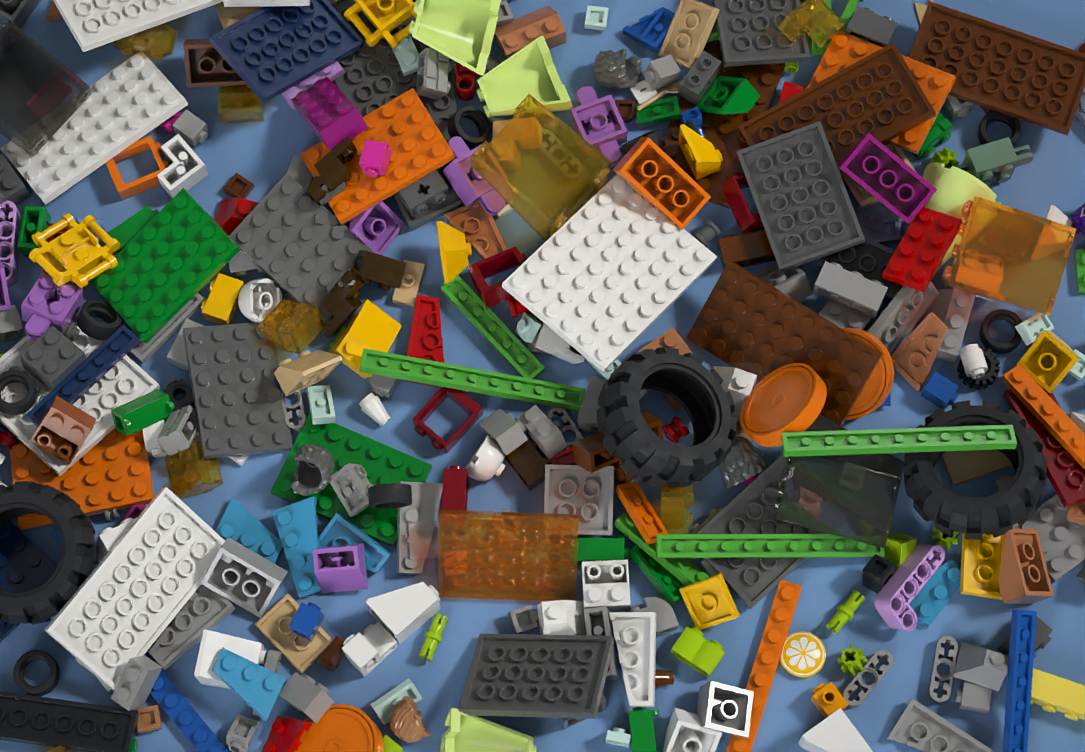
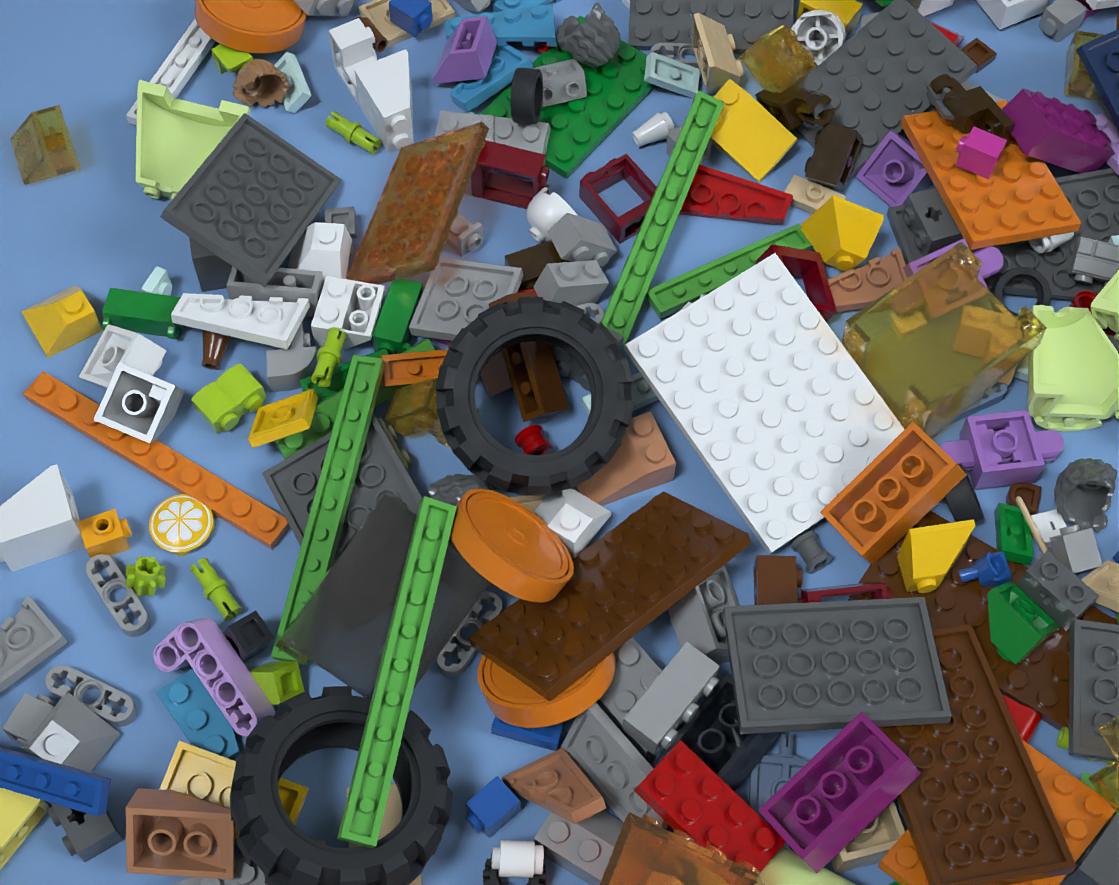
camera: 100 degrees right, 10 degrees down
(652, 583) = (328, 357): none -> lime pin

